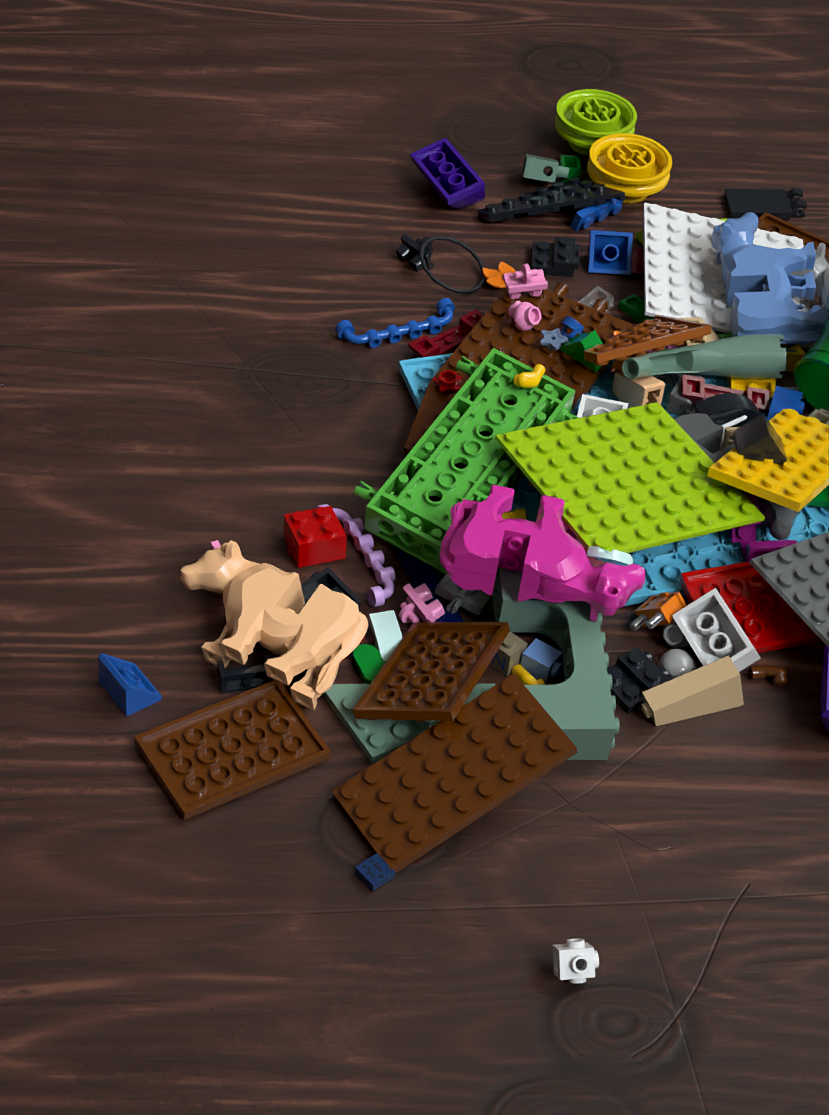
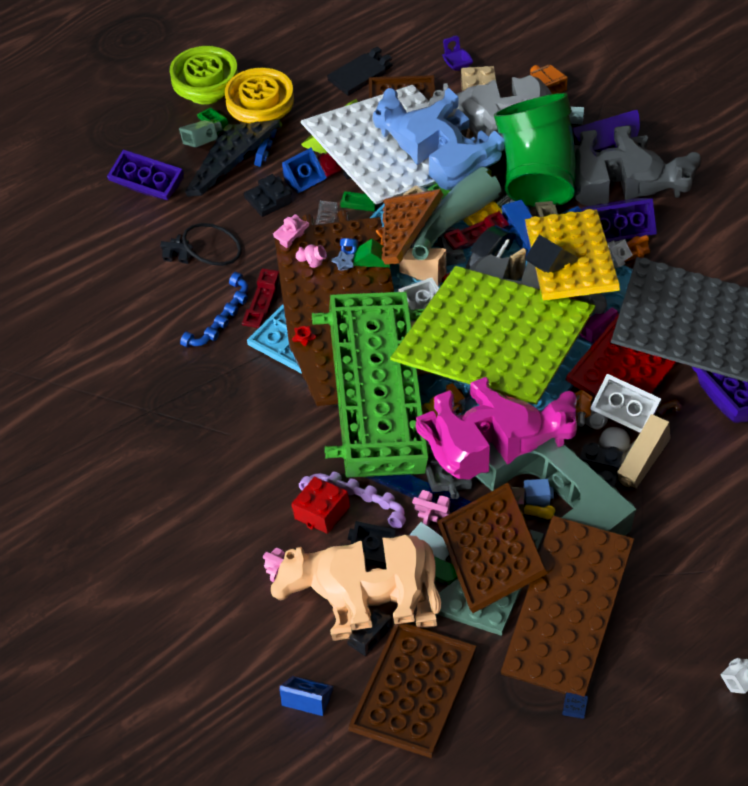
camera: 30 degrees left, 5 degrees up
(495, 277) = (250, 232): orange plate -> none
(529, 379) = (375, 301): yellow arm -> none
(615, 557) = (547, 395): light aqua tile -> none

